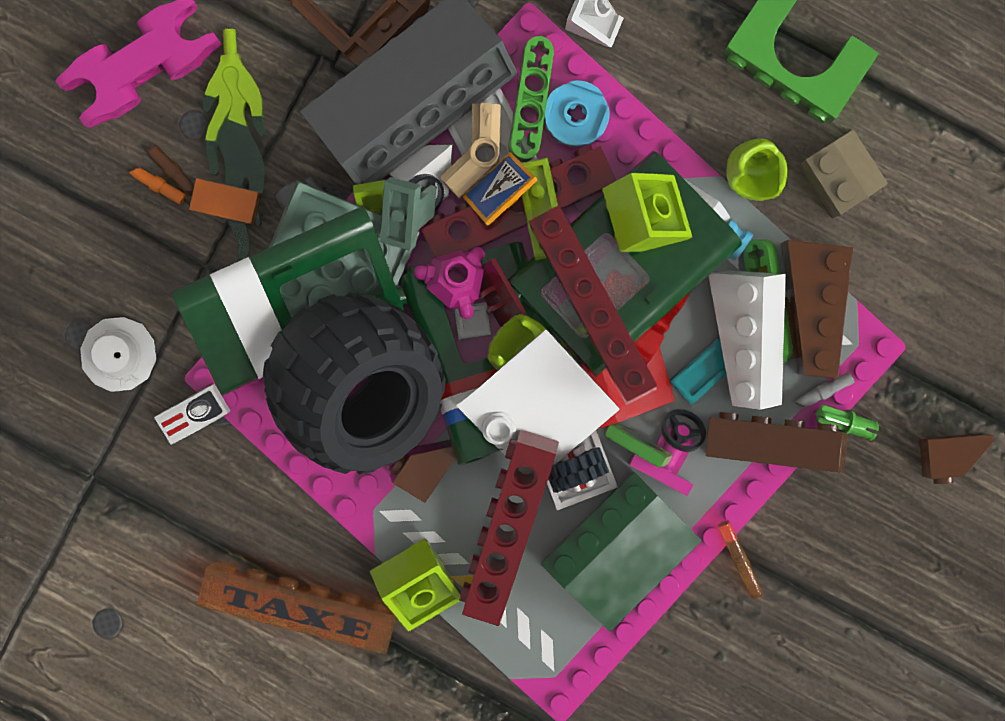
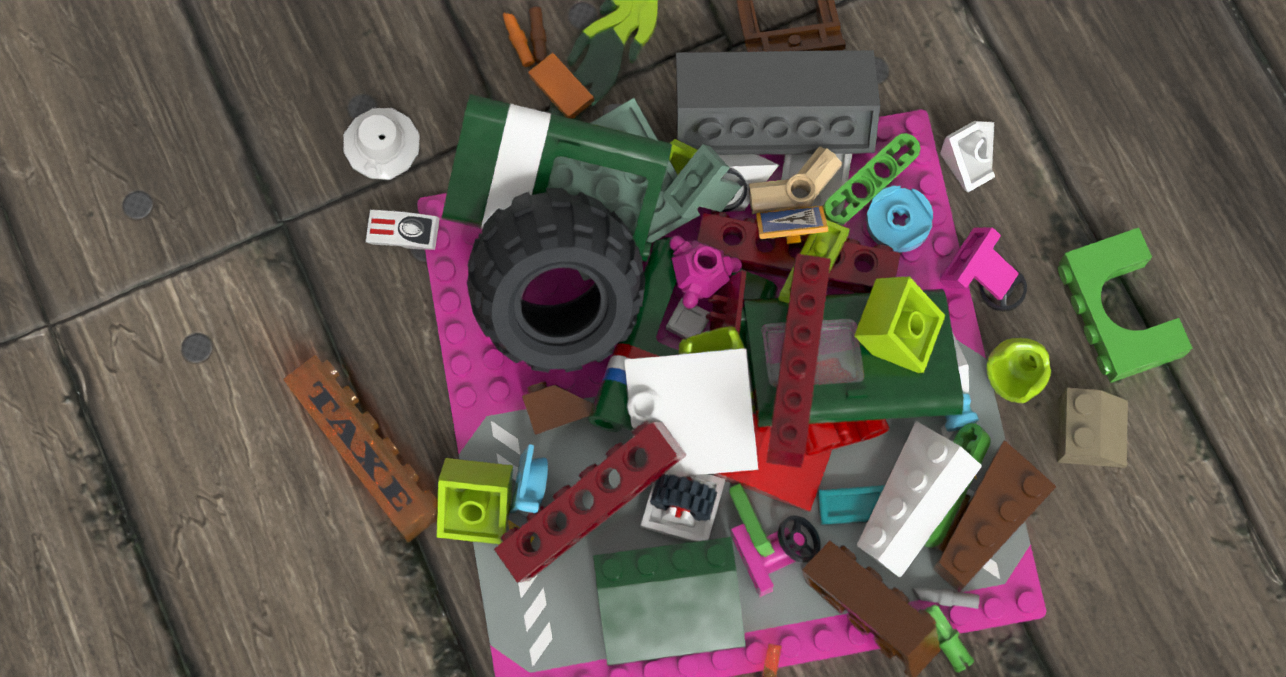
camera: 30 degrees right, 15 degrees down
(450, 544) = (529, 482): none -> medium azure hat
(666, 104) = (980, 261): none -> dark pink piece

